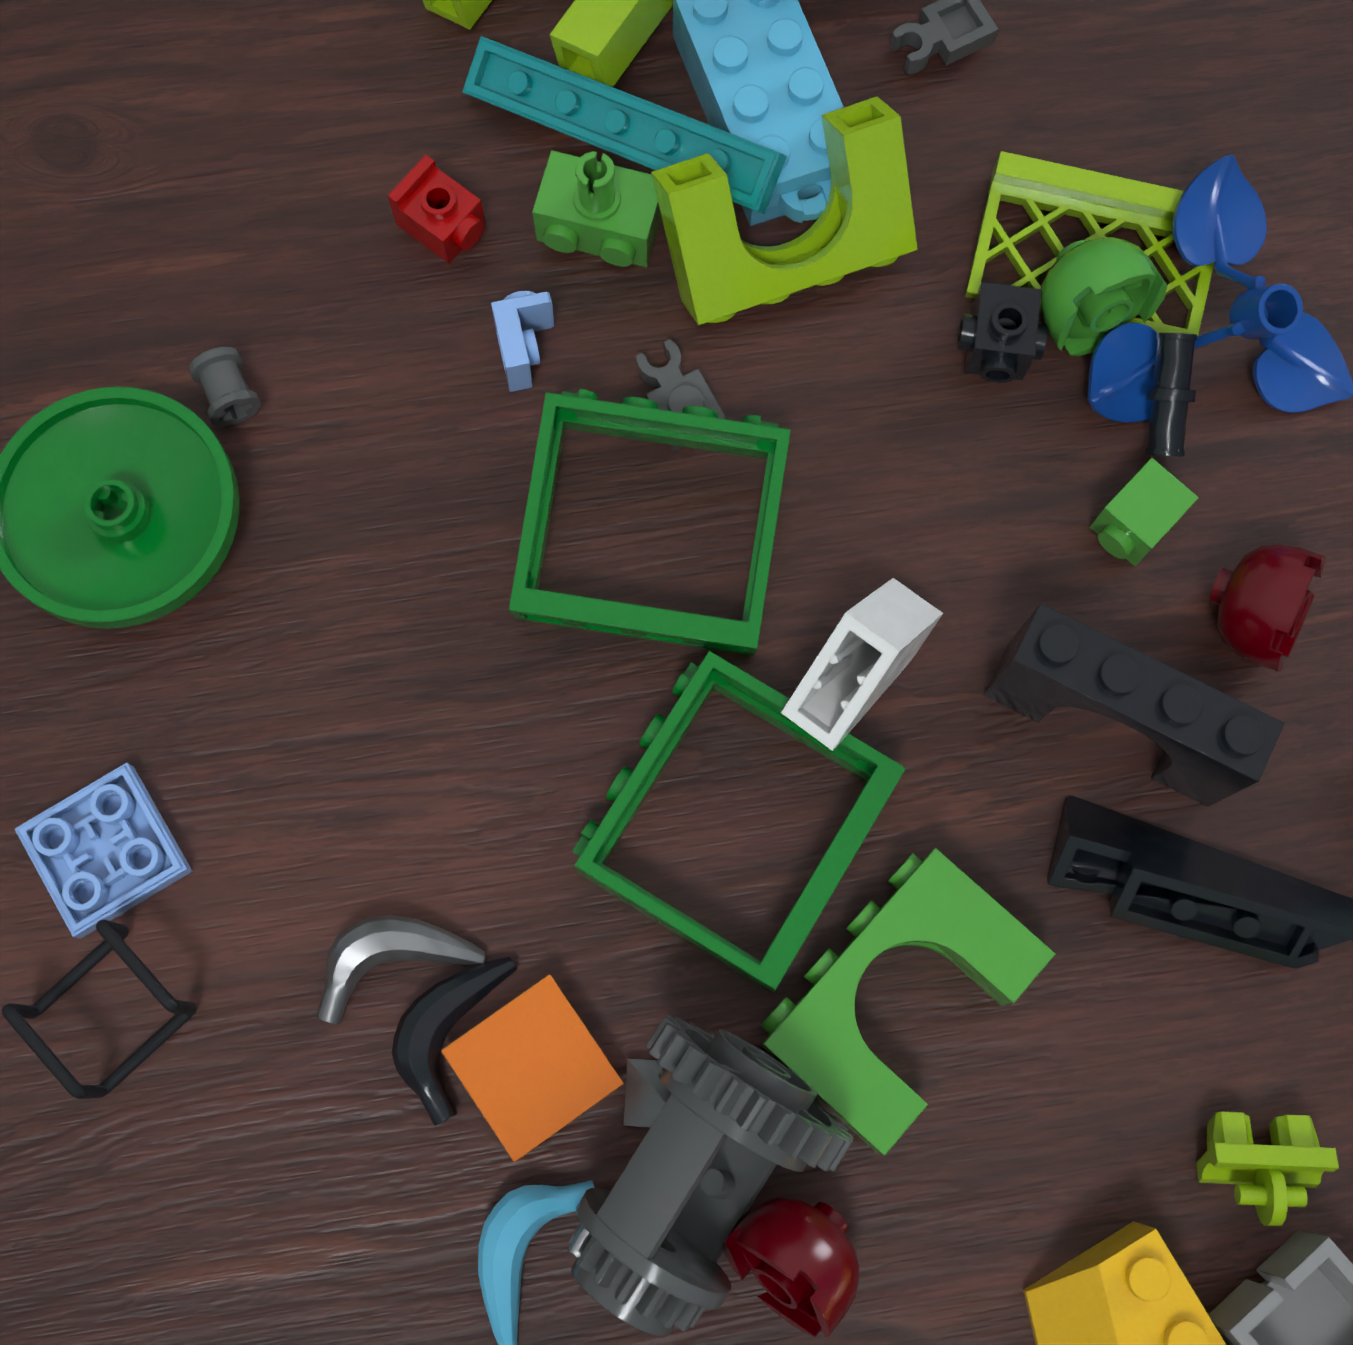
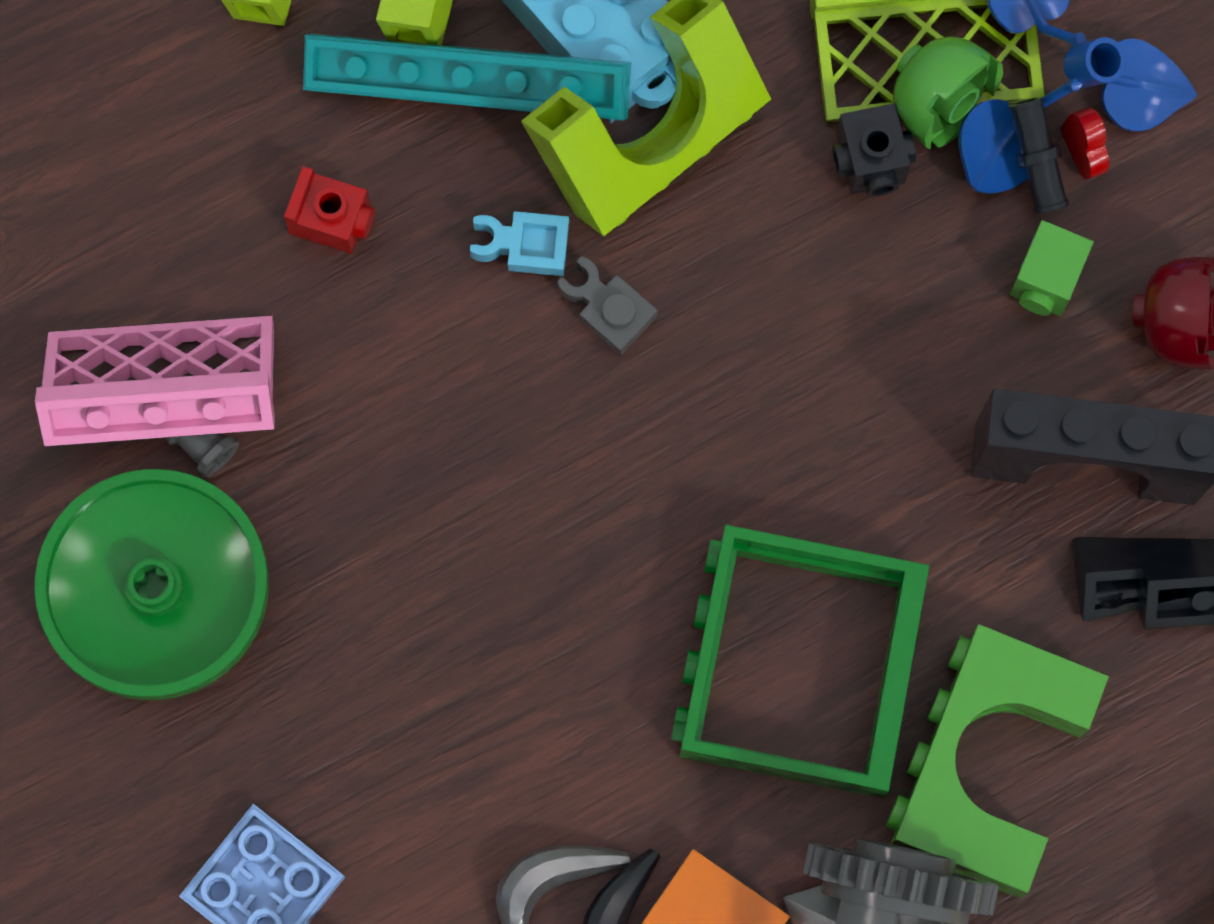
camera: 20 degrees left, 0 degrees up
(207, 336) = (160, 402): none -> bright pink fence
(515, 324) = (447, 311): light blue bracket -> none
(597, 209) = (473, 160): bright green brick -> none
(623, 311) = (533, 242): none -> medium azure plate
(642, 420) = (635, 333): green window -> none
(861, 661) = (859, 487): white slope -> none
(1223, 400) = (1086, 141): none -> red tile

